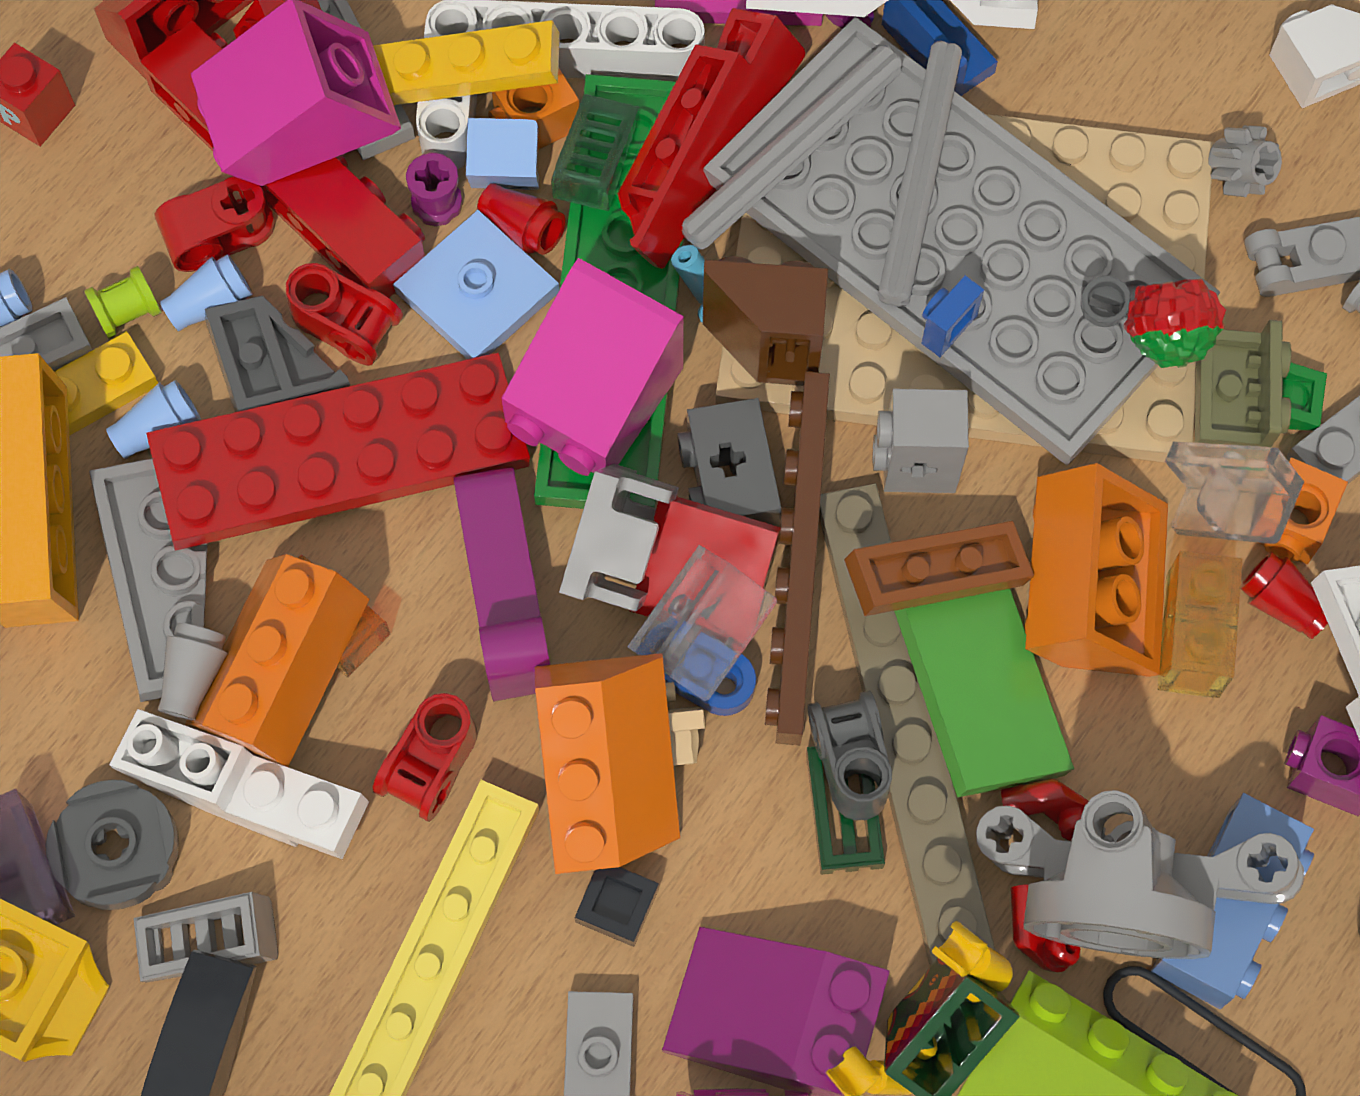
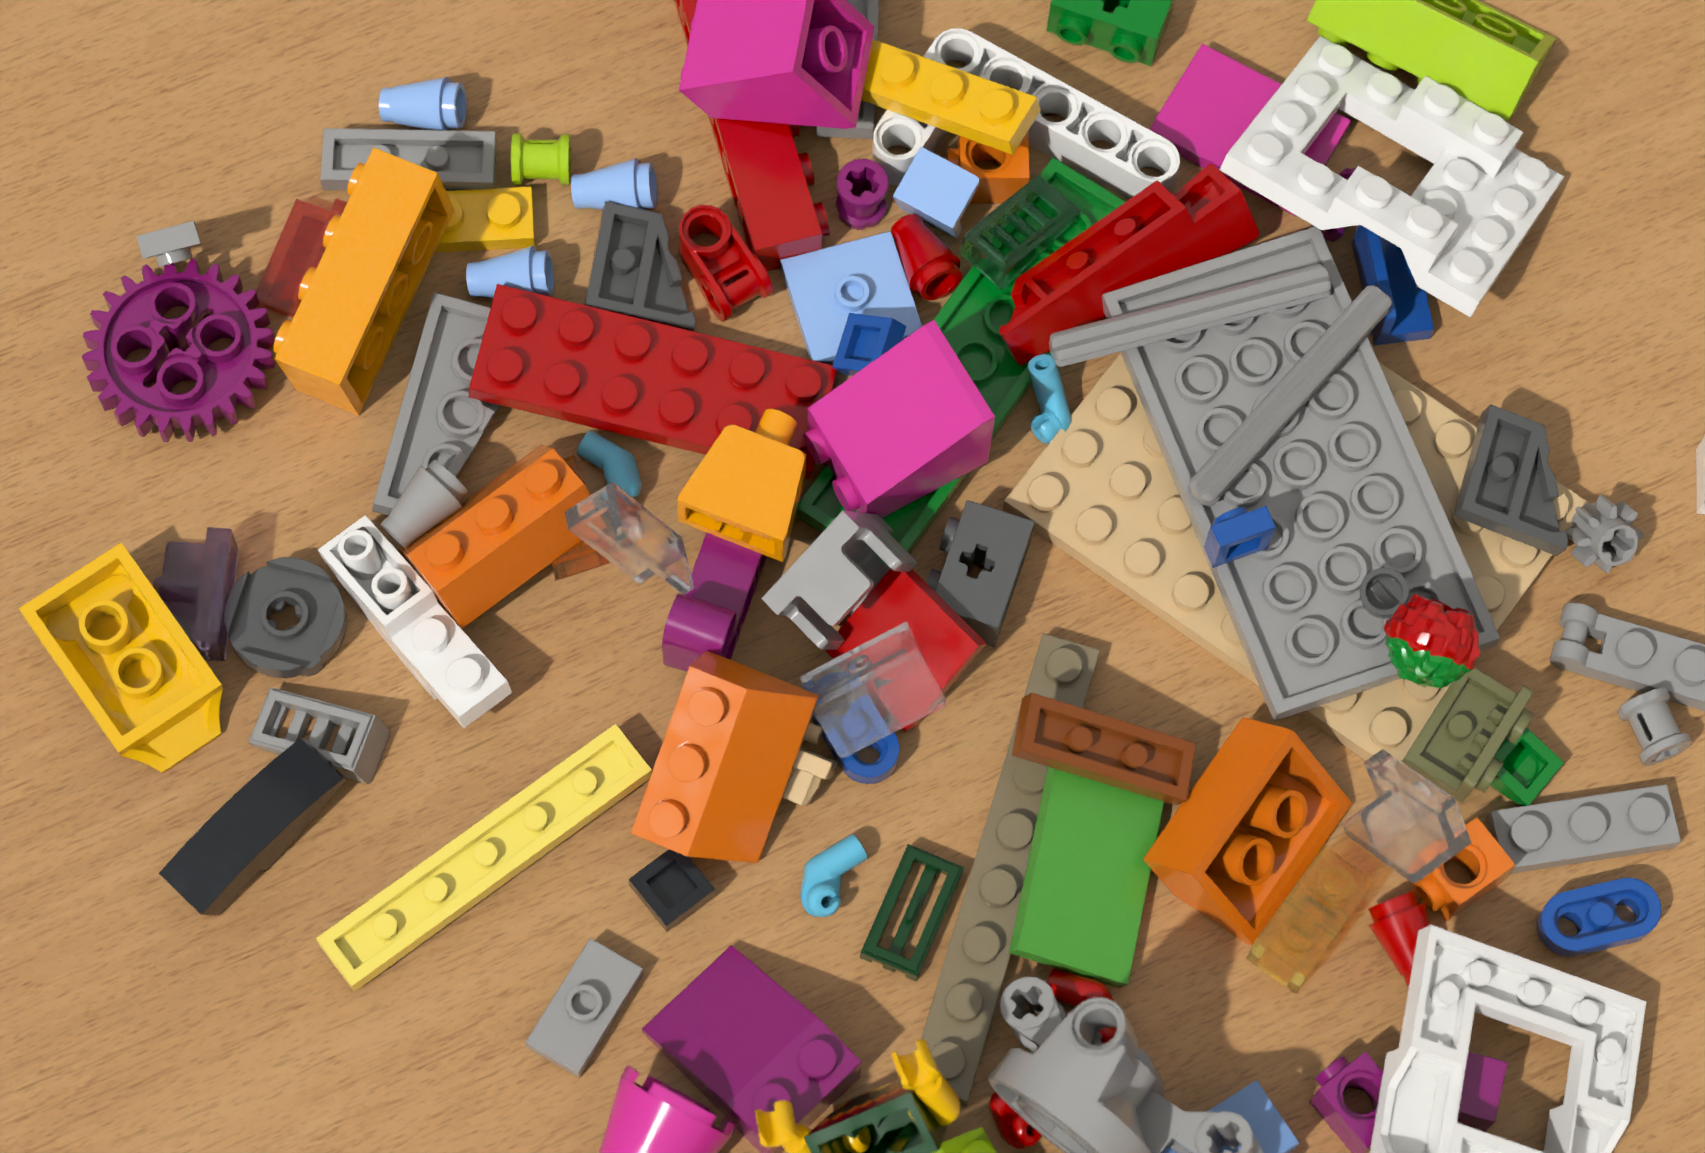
camera: 25 degrees right, 0 degrees up
(210, 223) = (653, 129): red piece -> none
(351, 545) = (616, 462): none -> medium azure arm
(402, 599) = (631, 537): none -> clear panel
(426, 759) = (580, 684): red piece -> none
(486, 497) = (748, 486): none -> light orange torso
(517, 316) = (866, 340): none -> blue plate
(747, 818) = (823, 876): none -> medium azure arm
(767, 315) = (1080, 456): reddish brown slope -> none
(796, 584) = (977, 698): reddish brown plate -> none
(852, 743) = (941, 860): dark grey piece -> none
(922, 440) = (1155, 632): light grey brick -> none
(1145, 154) = (1511, 483): none -> dark grey wing

